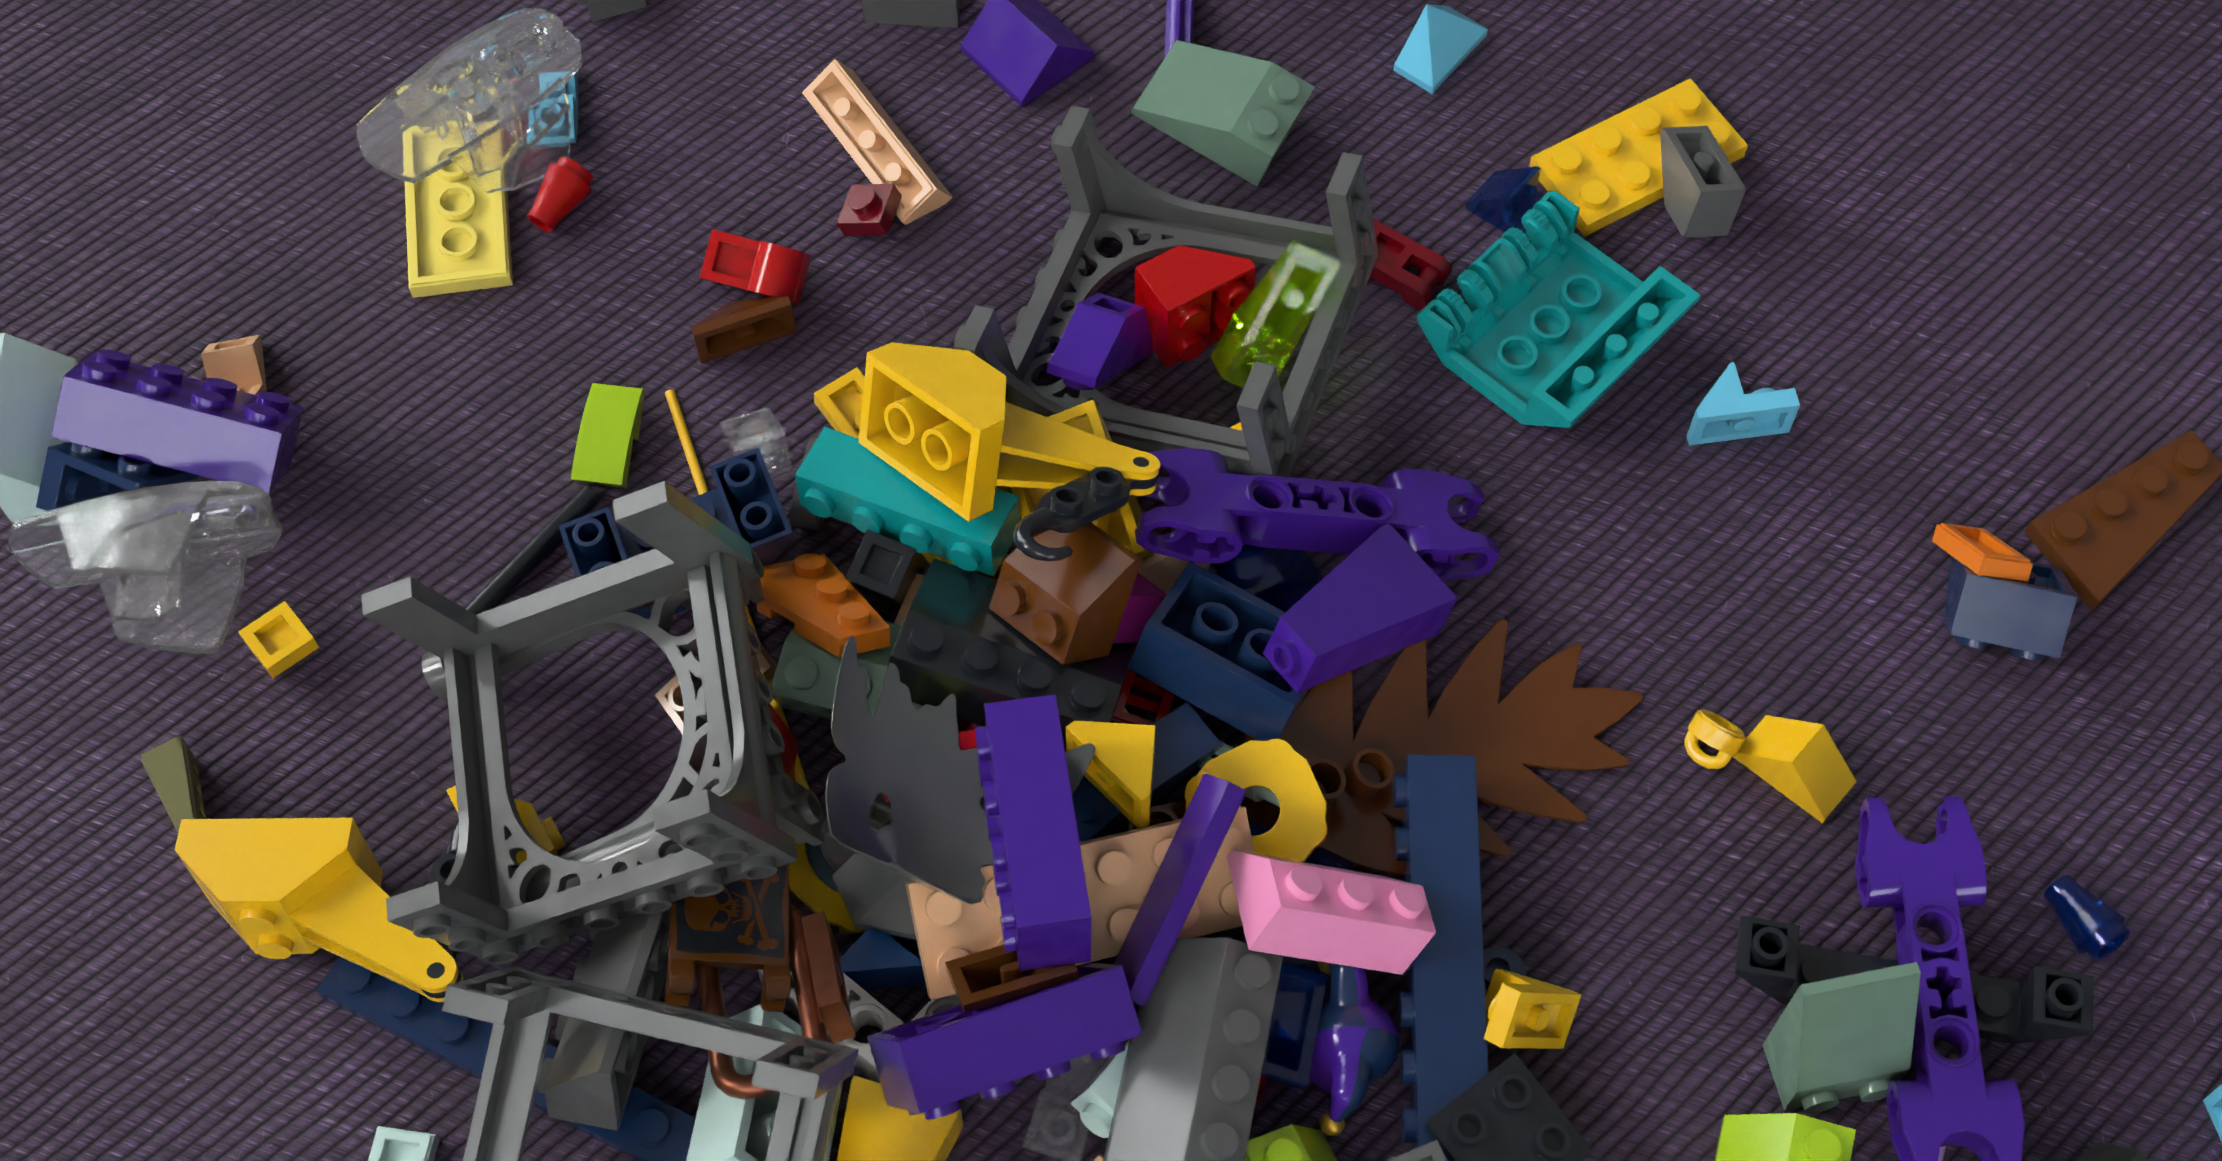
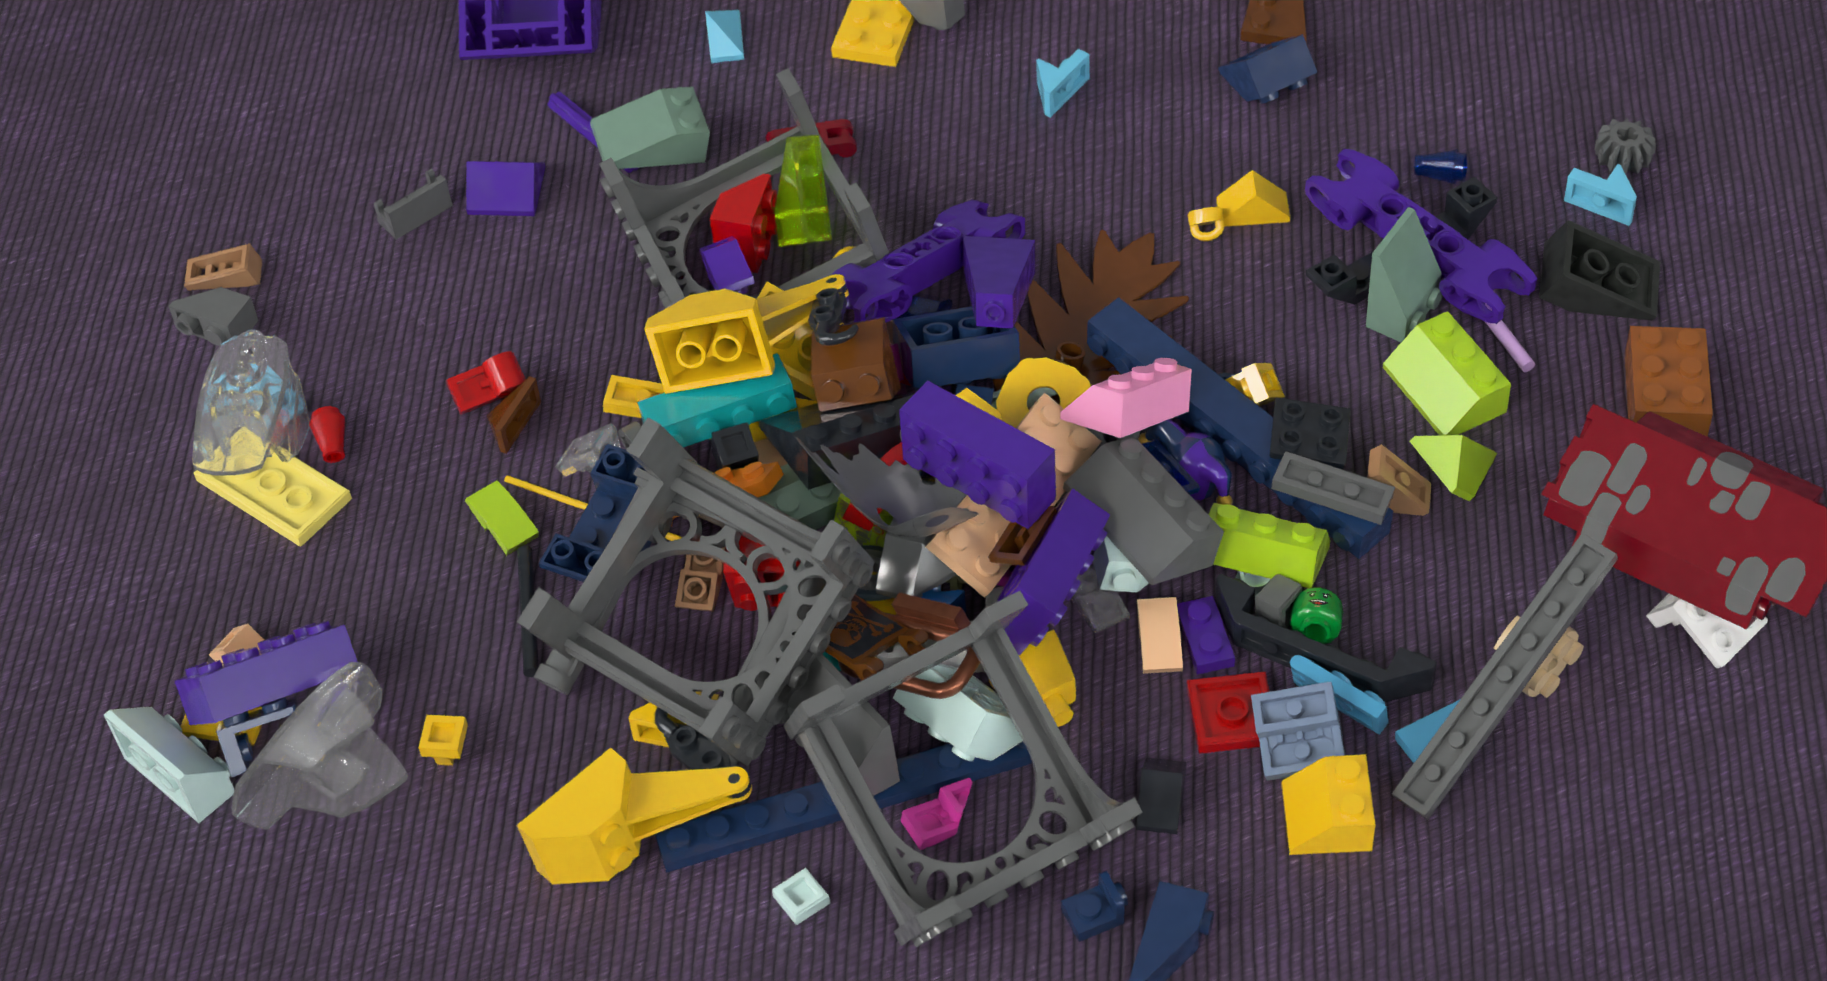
camera: 40 degrees left, 10 degrees down
(176, 779) = (477, 847): olive slope -> none
(869, 209) = (515, 315): dark red plate -> none
(875, 140) = (476, 286): light nougat slope -> none
(1177, 884) = (1051, 428): dark purple tile -> none
(1507, 197) = (848, 76): clear blue slope -> none
(1550, 318) = (930, 108): teal slope -> none
(1982, 552) = (1237, 53): orange tile -> none

